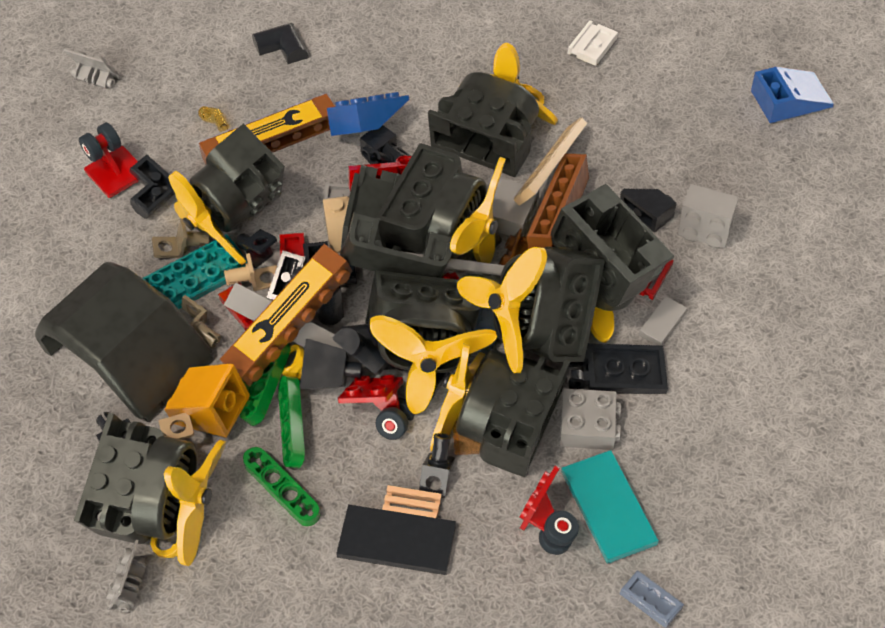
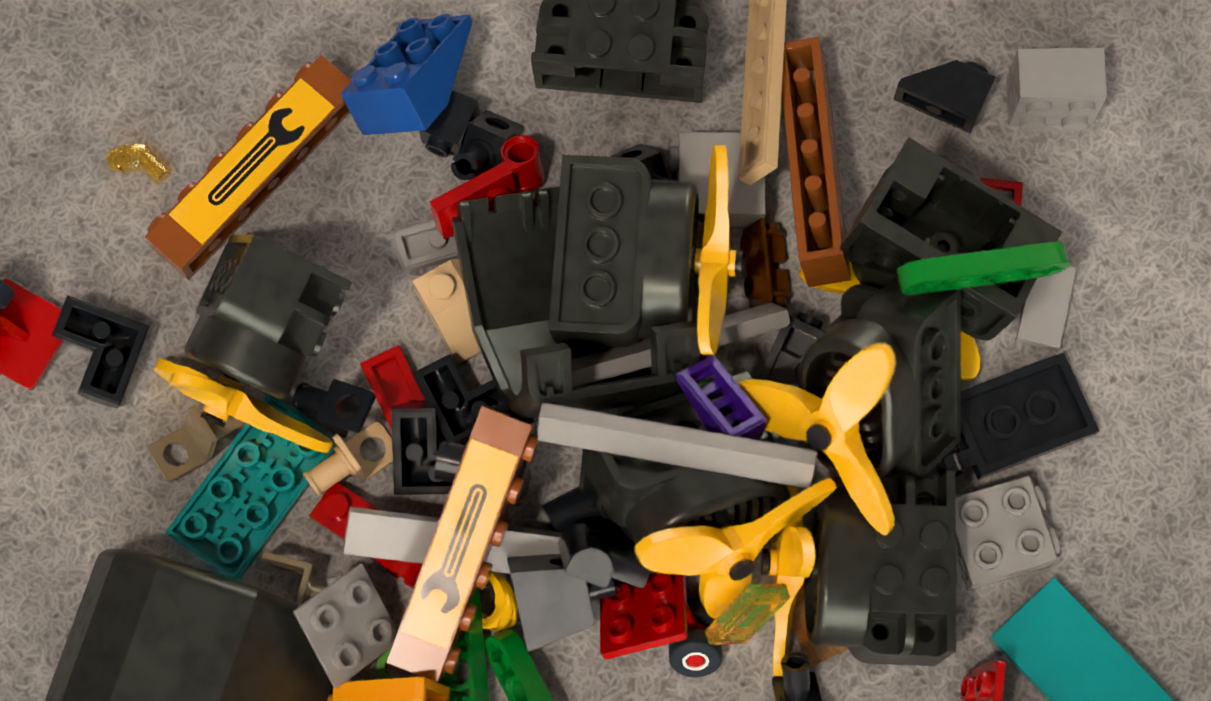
camera: 20 degrees left, 20 degrees up
(207, 338) = (347, 624): none -> light grey hinge
(418, 287) = (676, 445): none -> light grey tile
(426, 402) = (747, 614): none -> clear yellow tile
(452, 284) = (745, 412): none -> dark purple slope
(648, 257) = (982, 268): none -> green beam

